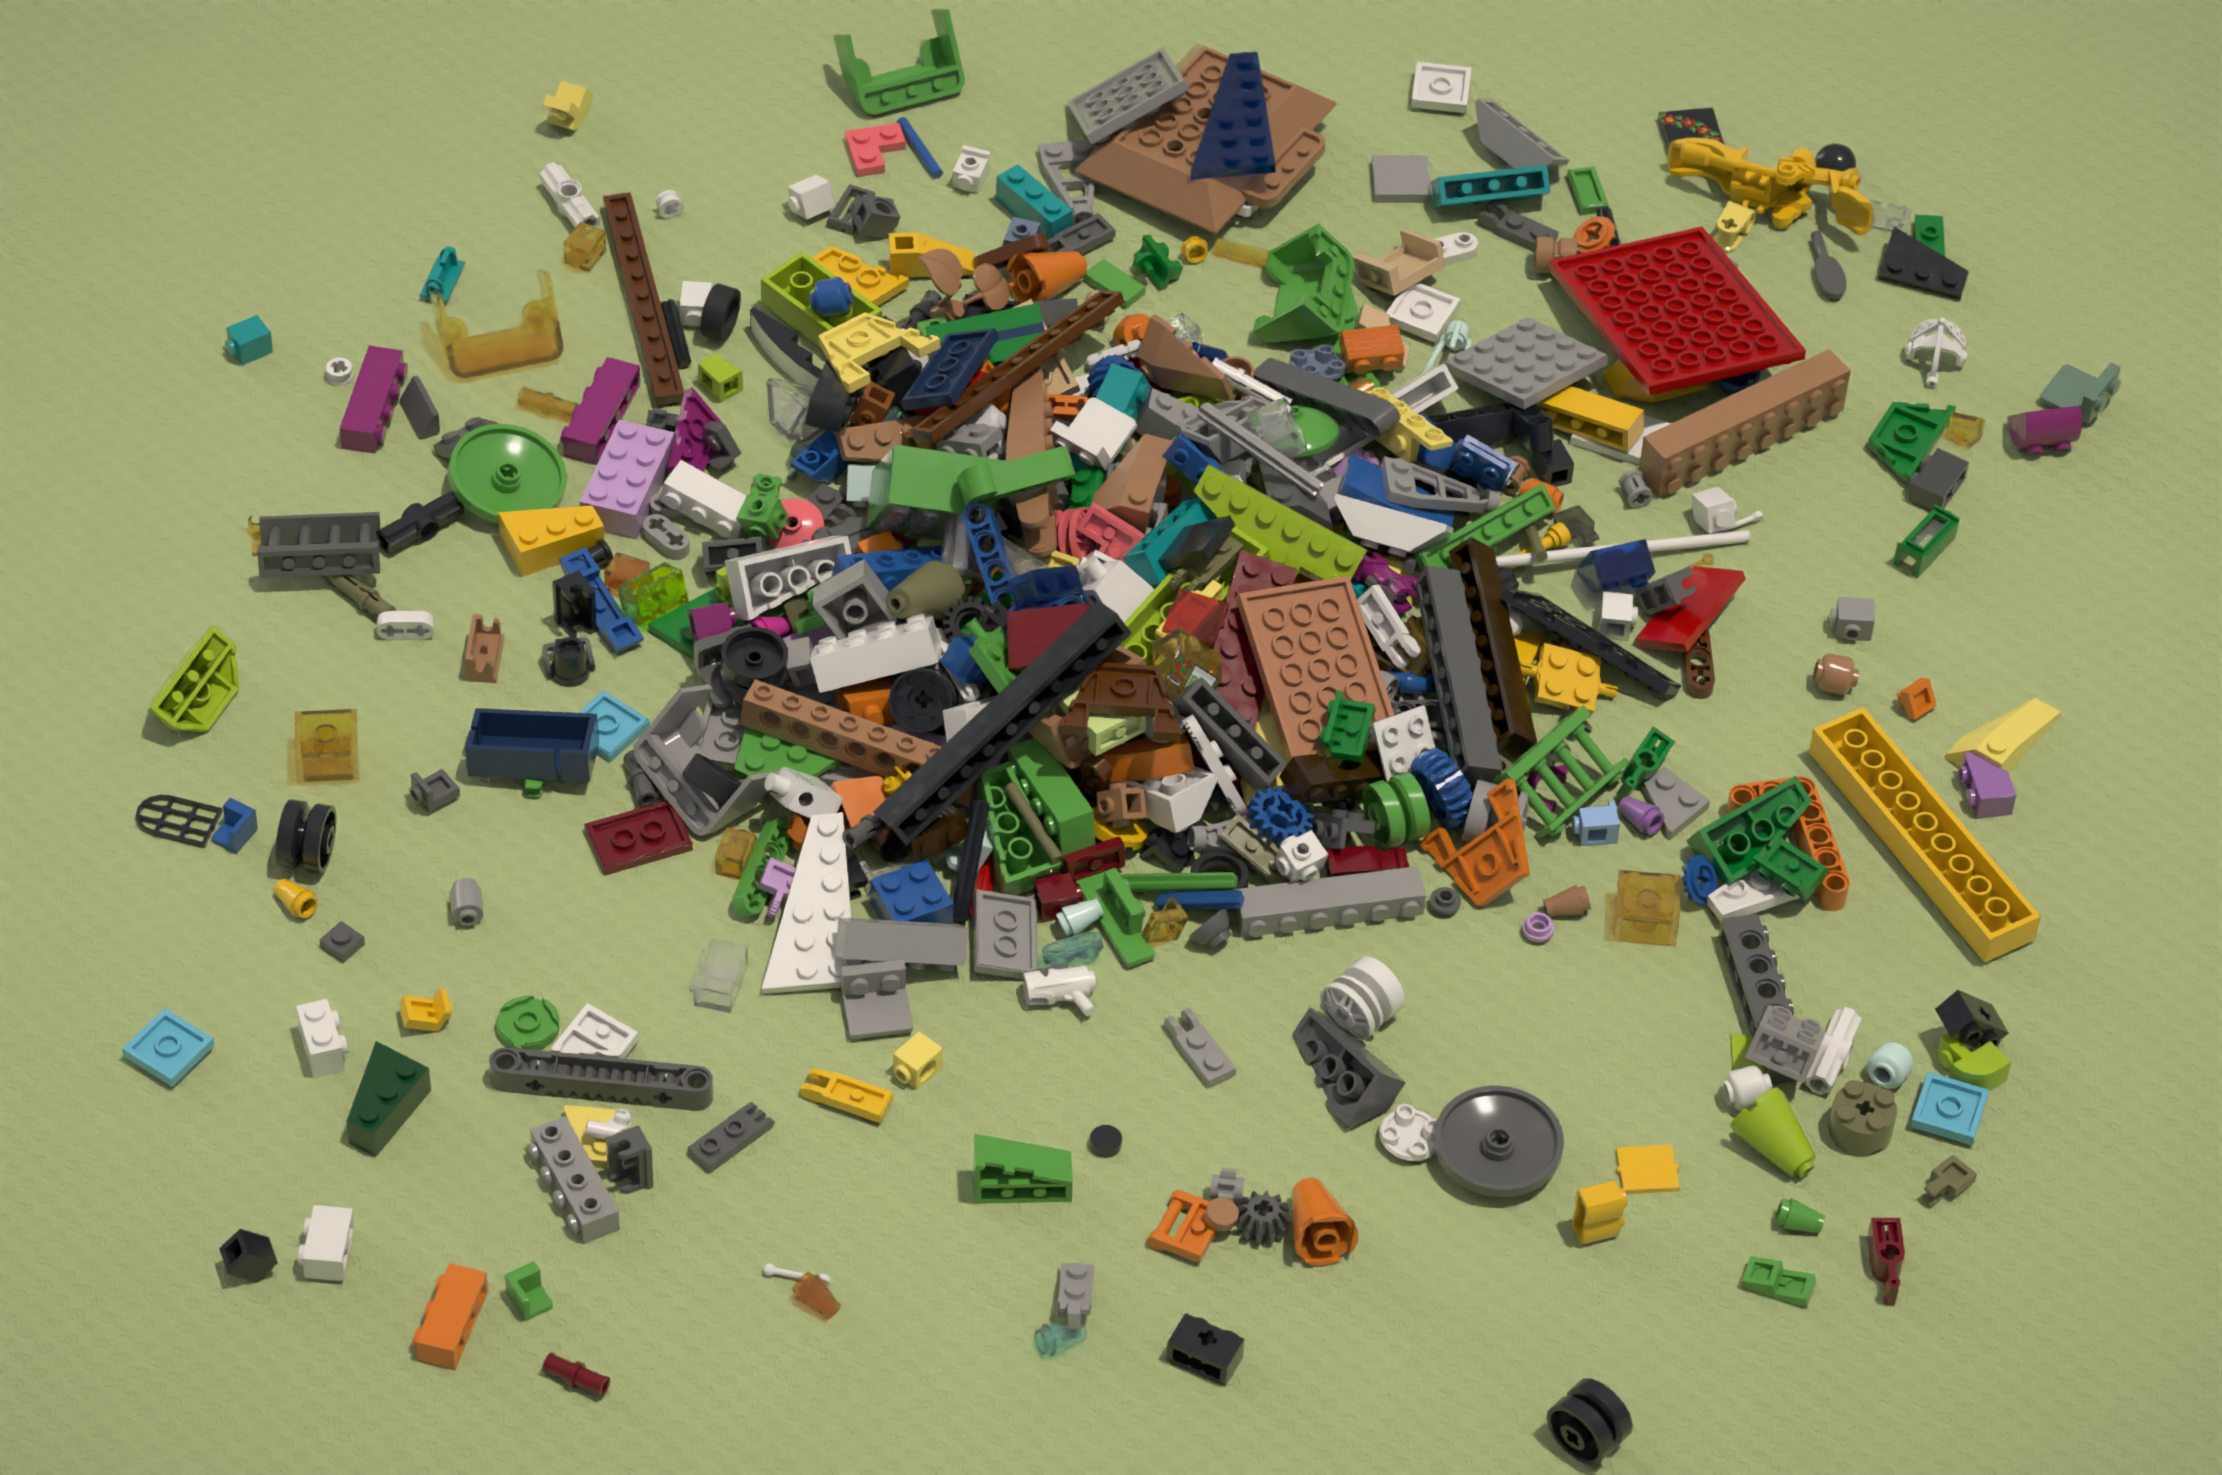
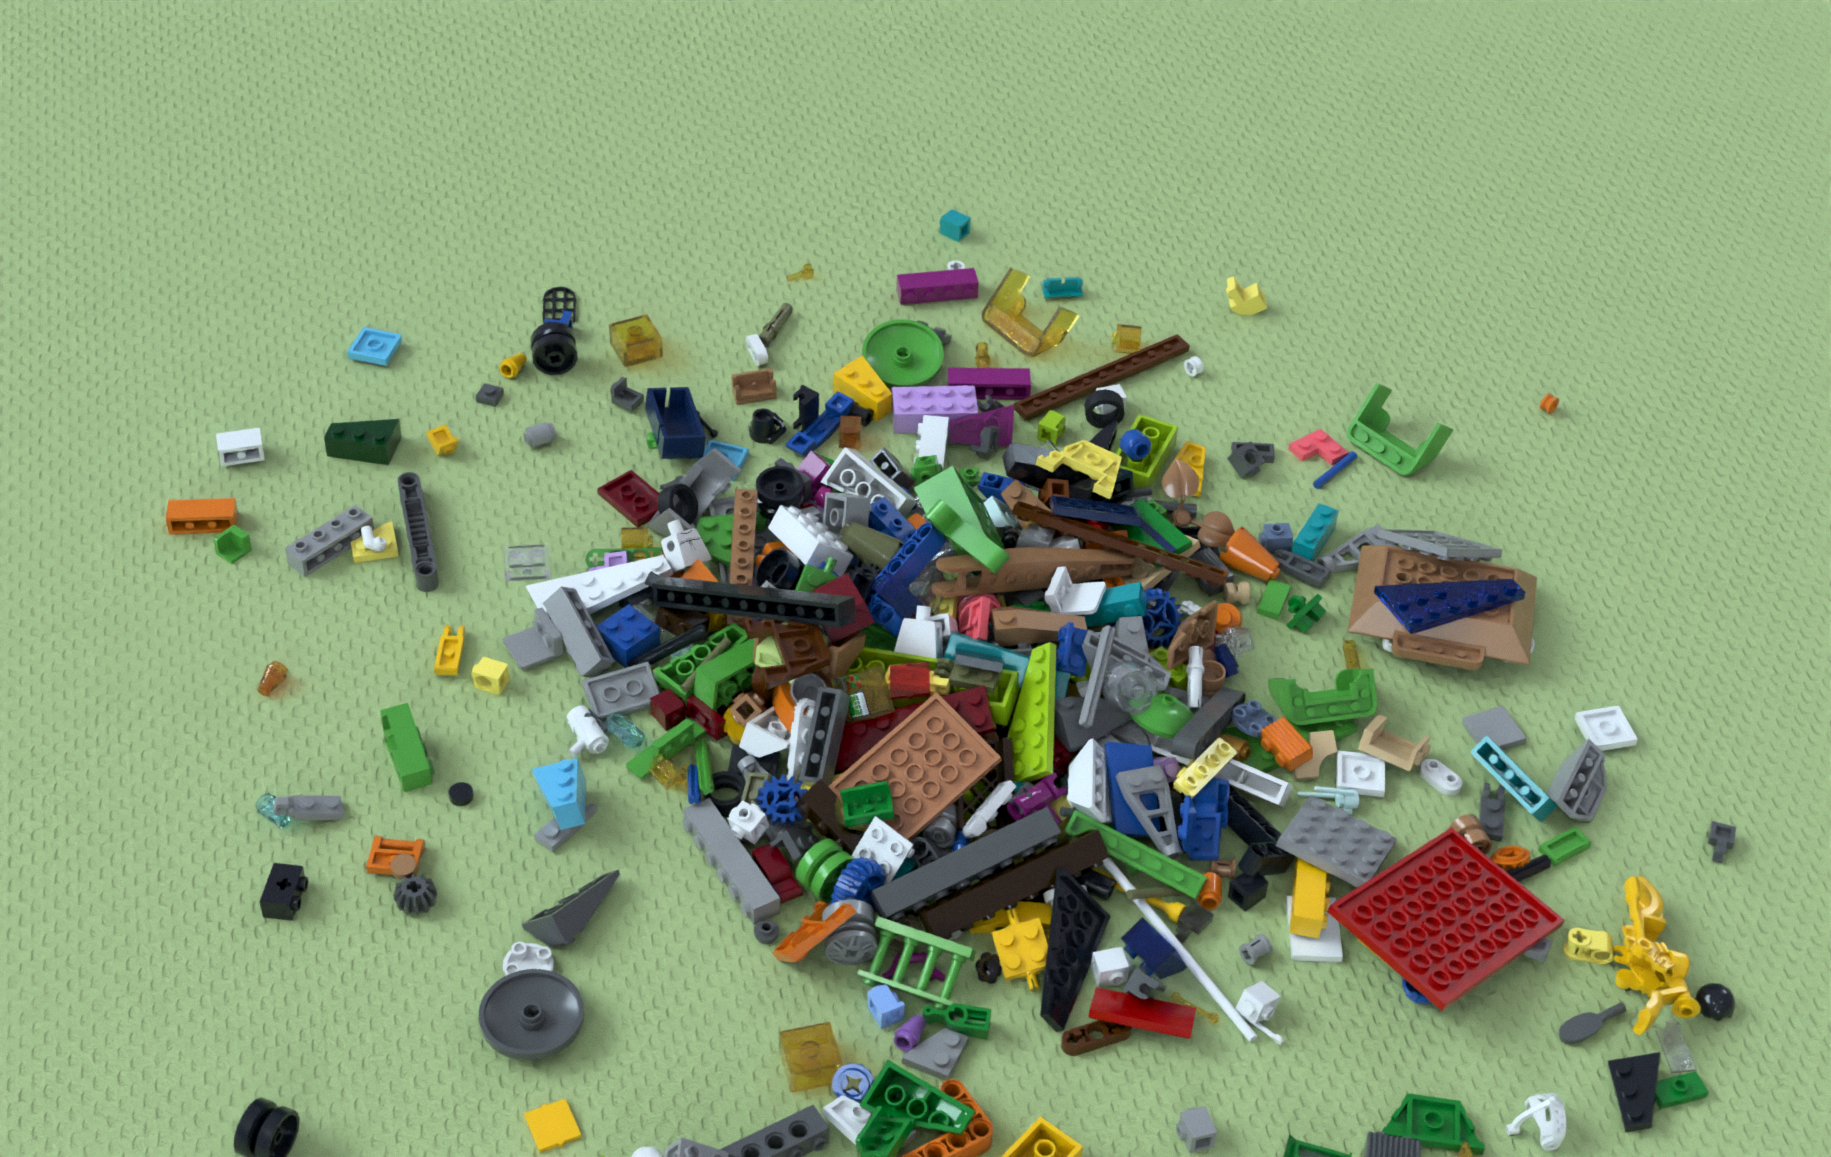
camera: 70 degrees right, 5 degrees down
(199, 685) = (656, 277): lime wedge -> none
(248, 1255) = (219, 417): black brick -> none
(319, 559) = (790, 304): dark grey fence -> none
(320, 1037) = (402, 401): white brick -> none
(419, 522) = (843, 333): black piece -> none
(420, 409) = (944, 310): dark grey slope -> none
(528, 1023) = (456, 490): bright green tile -> none
(568, 196) = (1165, 321): white piece -> none
(576, 1374) = (173, 584): dark red pin -> none
(596, 1035) = (454, 520): white wing -> none
(630, 1158) = (348, 556): dark grey hinge -> none
(653, 594) = (831, 440): clear neon green brick -> none
(662, 539) = (902, 444): light grey beam -> none
(676, 333) = (1073, 403): black axle -> none
(730, 1137) = (396, 605): dark grey hinge -> none
(769, 1270) = (290, 653): white hinge -> none
(811, 197) = (1242, 425): white brick -> none
(907, 247) = (1225, 493): yellow slope -> none
(971, 169) = (1327, 495): white brick -> none
(1000, 256) = (1254, 528): reddish brown beam -> none
(1079, 916) = (653, 724): light aqua cone -> none
(1171, 1024) = (564, 791): none -> medium azure wedge
(1196, 255) = (1333, 631): yellow plate -> none
(1213, 931) = (672, 800): dark grey piece -> none
(1227, 1185) = (434, 866): light grey gear -> none
(1320, 1224) = (417, 924): orange cone -> none
(1362, 998) = (635, 896): white wheel -> none
(1538, 927) = (765, 989): lavender plate -> none
(1568, 902) = (799, 1009): medium nougat cone -> none
(1599, 1212) = (477, 1091): yellow brick -> none
(1630, 63) = (1722, 837): none -> dark grey plate
(1689, 124) = (1682, 897): black tile -> none
(1744, 423) = (1362, 998): medium nougat brick -> none
(1835, 674) = (1125, 1128): medium nougat head -> none

